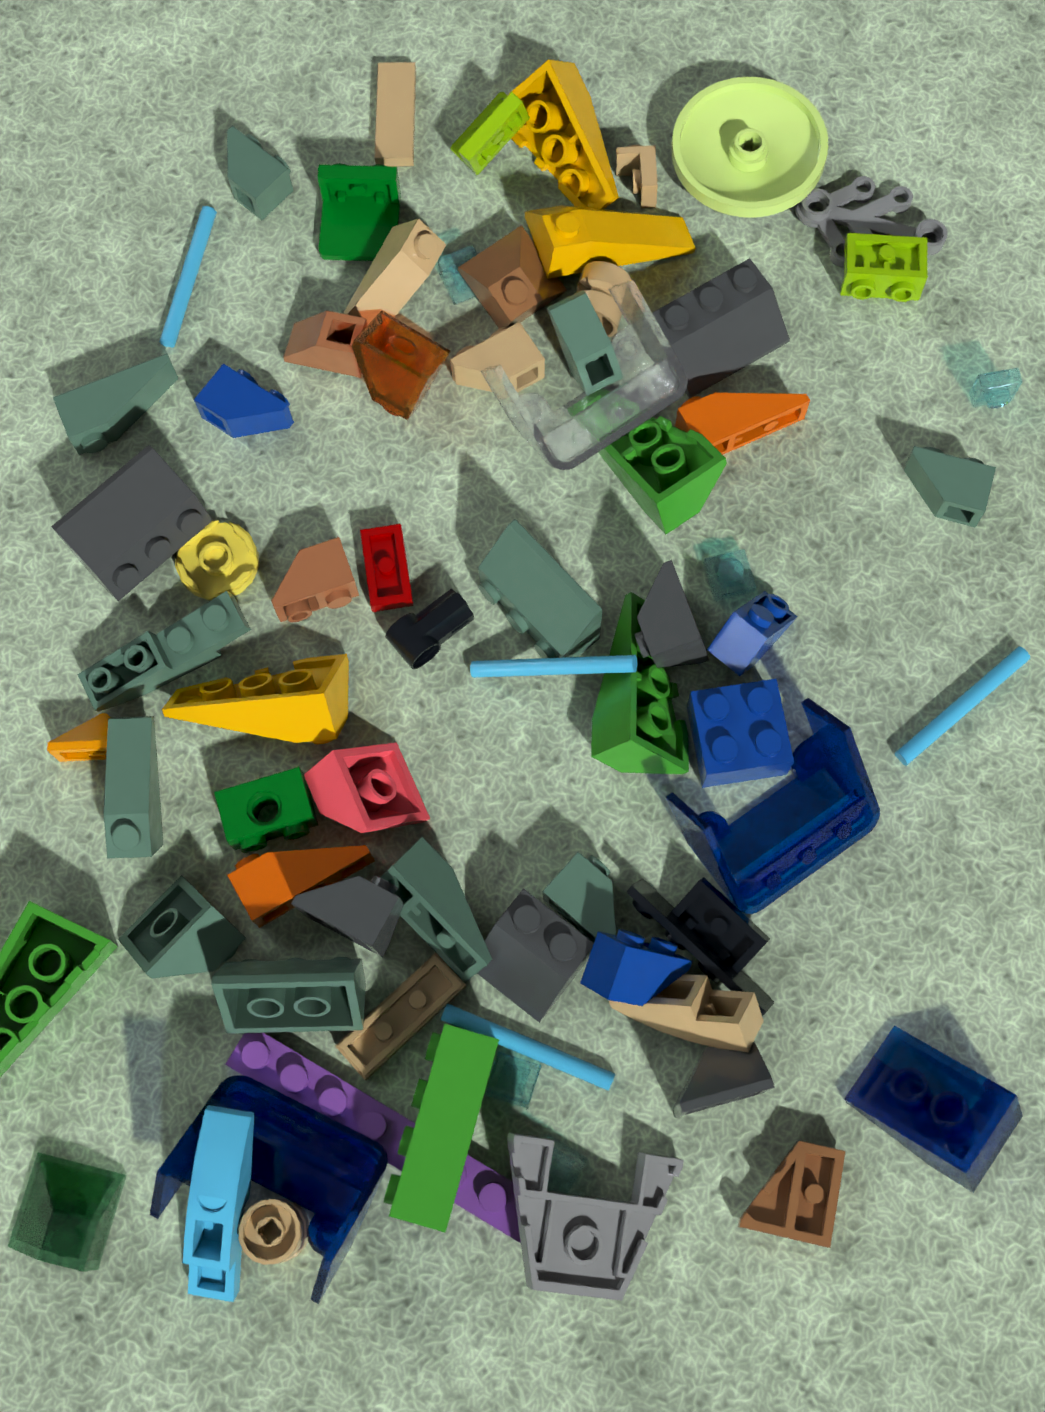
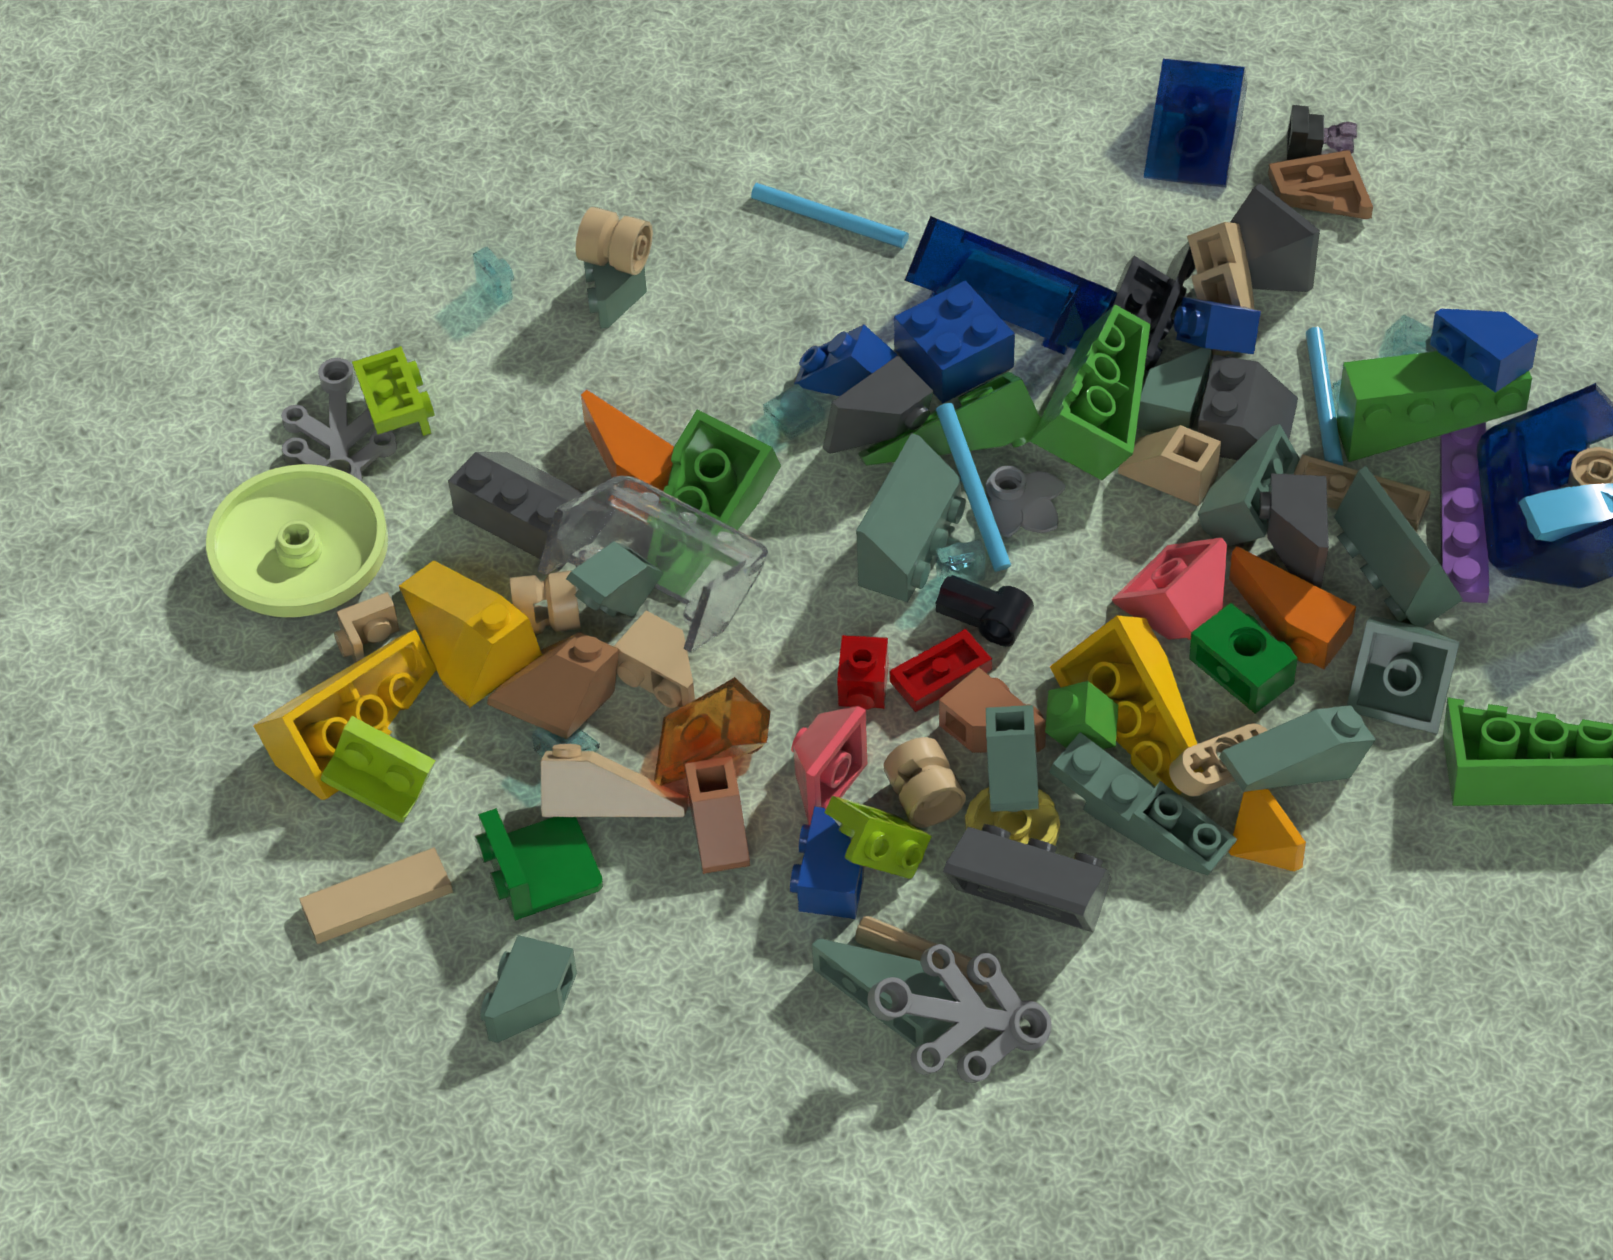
camera: 115 degrees left, 20 degrees down
(35, 474) = (968, 1013): none -> light grey plant
(151, 434) = (898, 942): none -> tan axle
(168, 697) = (1205, 755): none -> tan beam
(188, 277) = (688, 1006): medium azure bar -> none
(239, 439) = (879, 838): none -> lime bracket
(246, 561) = (1012, 758): none -> sand green slope
(266, 640) = (1081, 710): none -> bright green brick
(277, 501) = (924, 782): none -> tan wheel
(332, 433) = (829, 756): none -> coral slope
(411, 504) = (863, 672): none -> red brick
(433, 1182) = (1485, 344): none -> blue slope
(485, 628) = (961, 560): none -> clear light blue plate
(503, 853) = (1175, 463): none -> tan slope
(529, 718) = (1026, 503): none -> light grey plate
(581, 1240) = (1438, 286): light grey wing -> none
(604, 820) = (1098, 397): none -> bright green wedge
(874, 1220) = (1307, 134): none -> pearl dark grey piece
(966, 467) = (620, 242): none -> tan wheel

